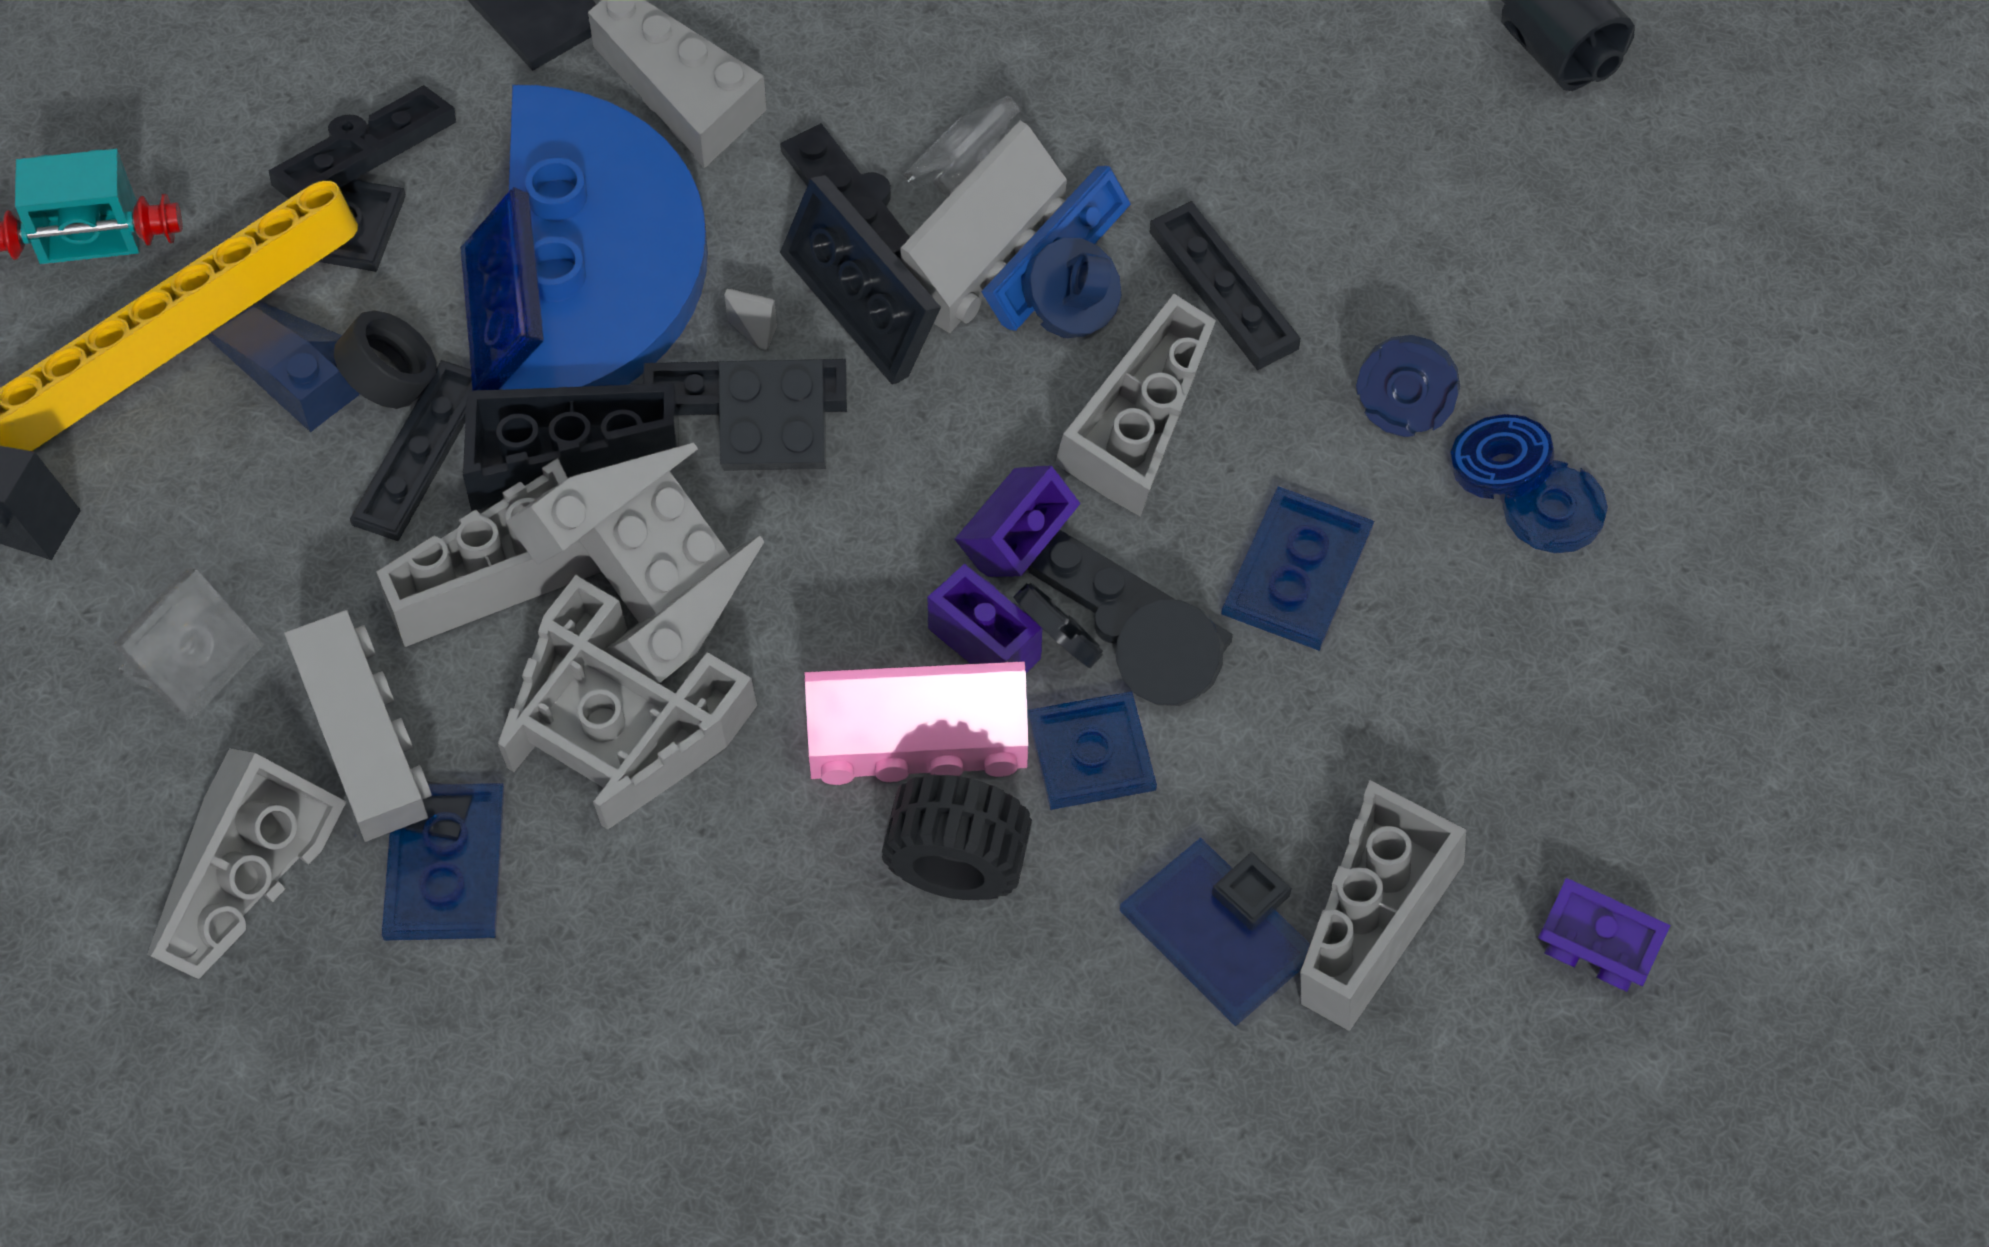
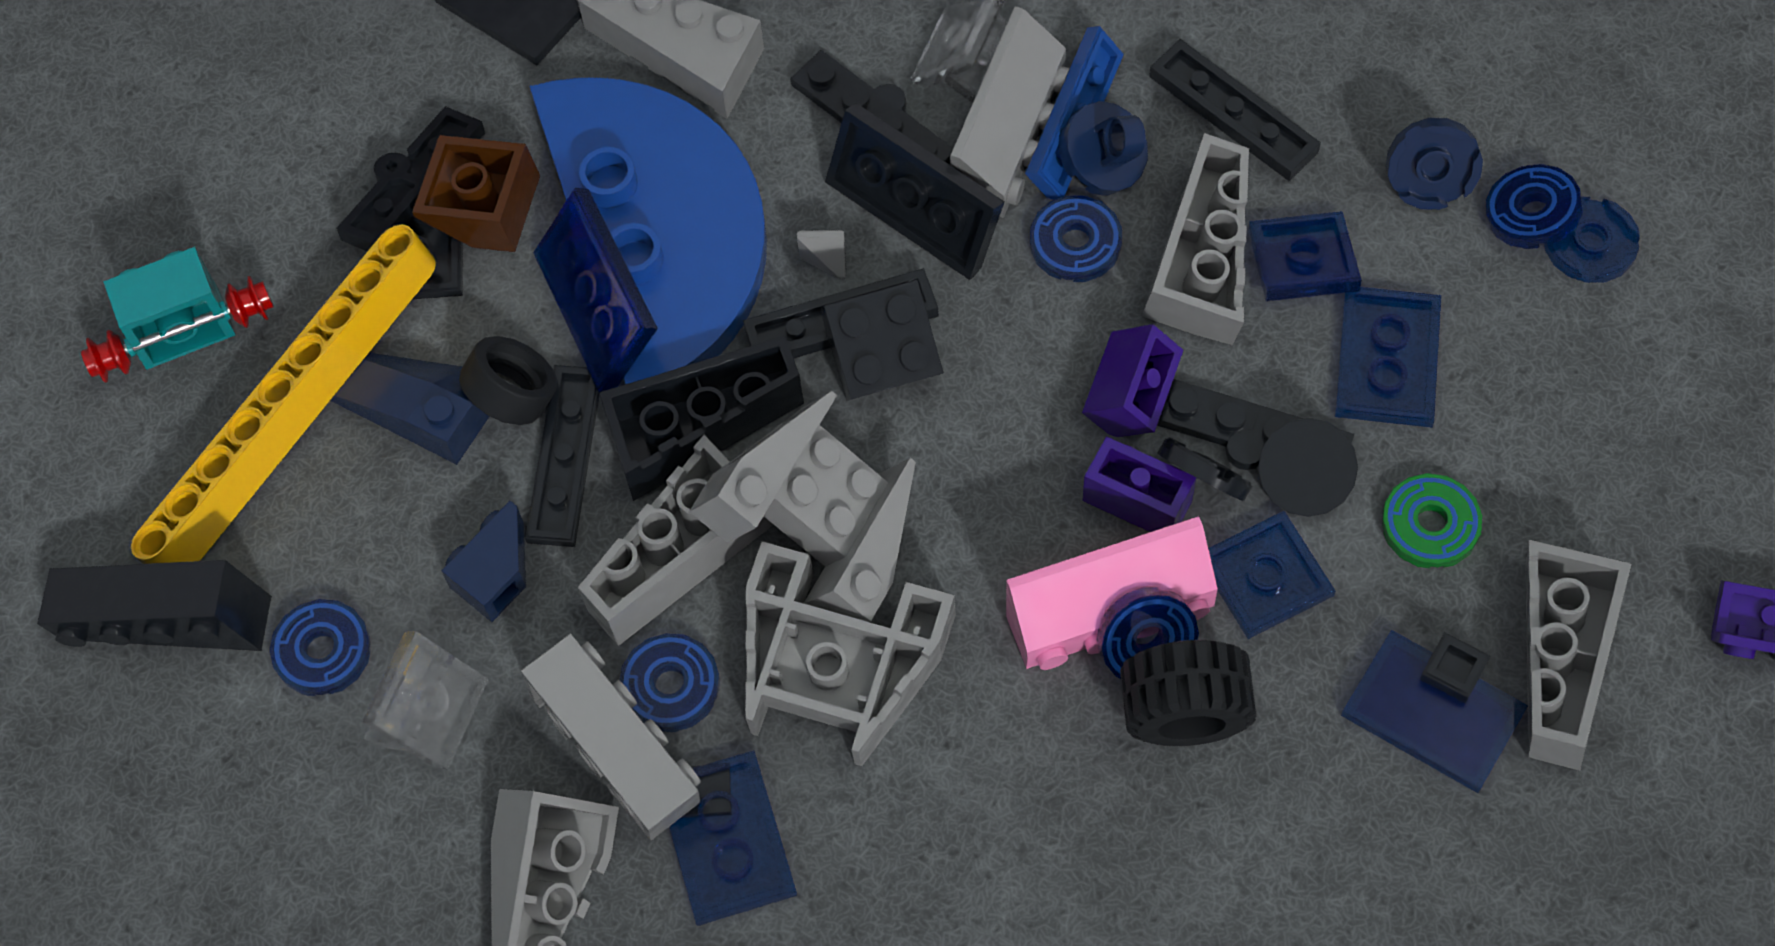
camera: 10 degrees left, 5 degrees up
(116, 597) = (307, 623): none -> clear blue tile
(307, 533) = (492, 565): none -> dark blue slope
(424, 172) = (478, 191): none -> reddish brown slope
(437, 668) = (677, 654): none -> clear blue tile
(938, 743) = (1139, 611): none -> clear blue tile
(1010, 395) = (1070, 262): none -> clear blue tile
(1244, 446) = (1304, 256): none -> clear blue tile
(1281, 770) = (1427, 547): none -> green tile

